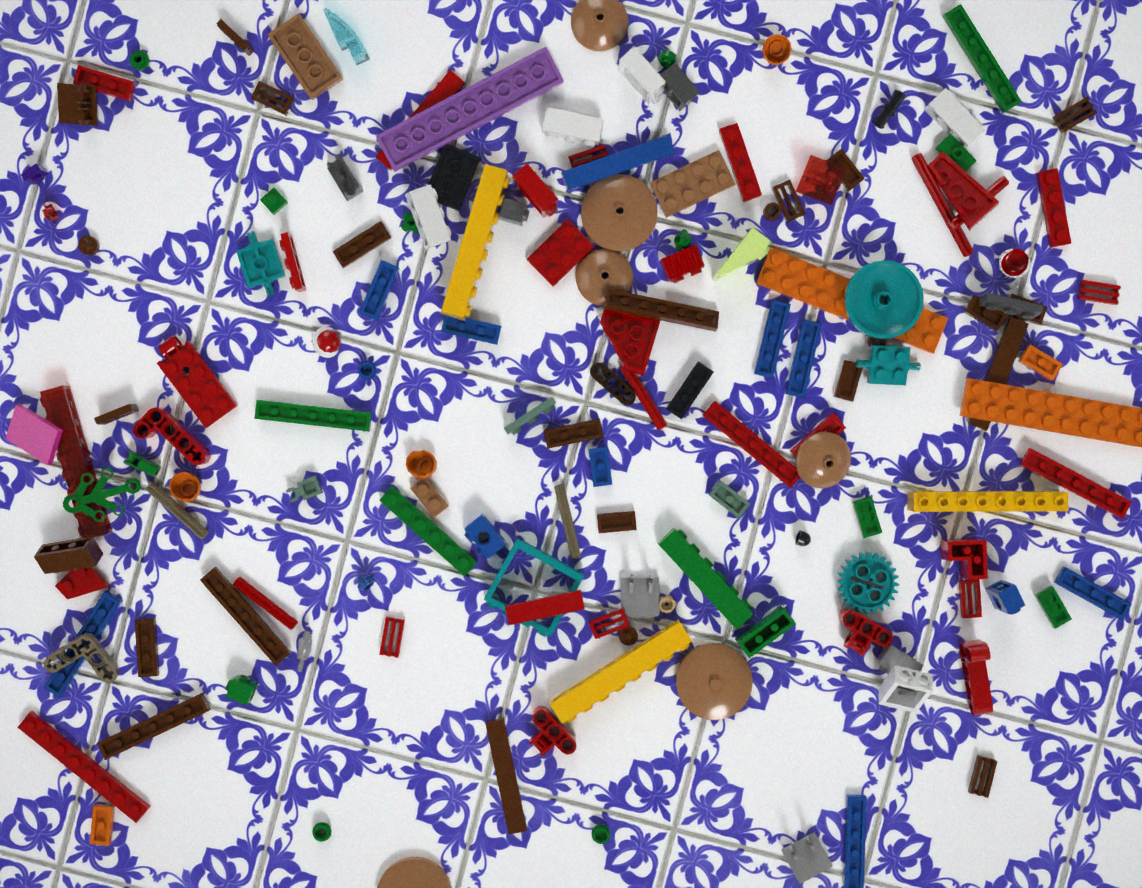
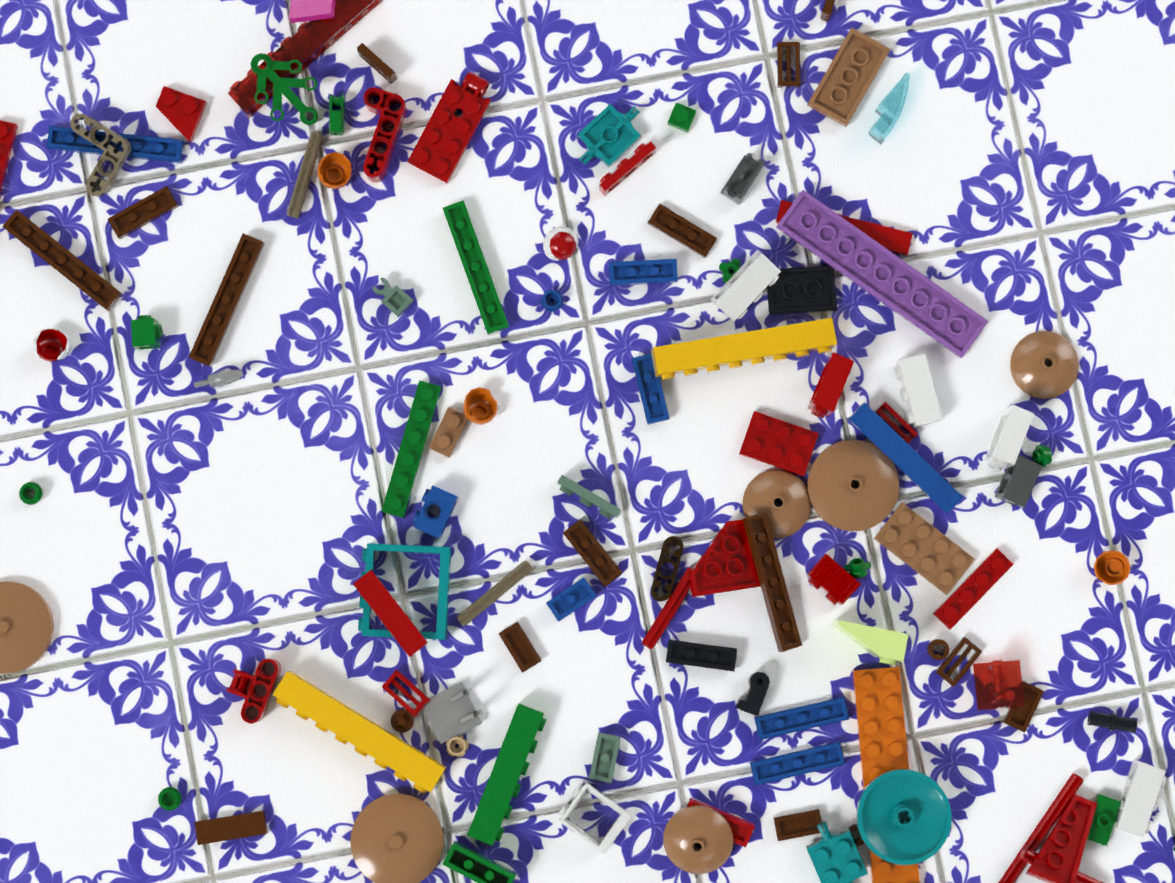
camera: 70 degrees right, 5 degrees down
(68, 555) = (204, 85): reddish brown brick -> none
(215, 764) = (51, 344): none -> red hair
(265, 603) = (250, 314): red axle -> none
(365, 582) = (324, 409): blue plate -> none
(389, 653) = (259, 471): red tile -> none
(506, 776) = (184, 663): reddish brown tile -> none
(514, 212) = (797, 373): flat silver brick -> none
(644, 798) = (230, 827): none -> reddish brown tile
(738, 364) = (756, 693): none -> black leg
(751, 444) = (676, 753): red tile -> none
(786, 519) = (614, 830): none -> white window
(802, 538) = (601, 861): black hinge -> none

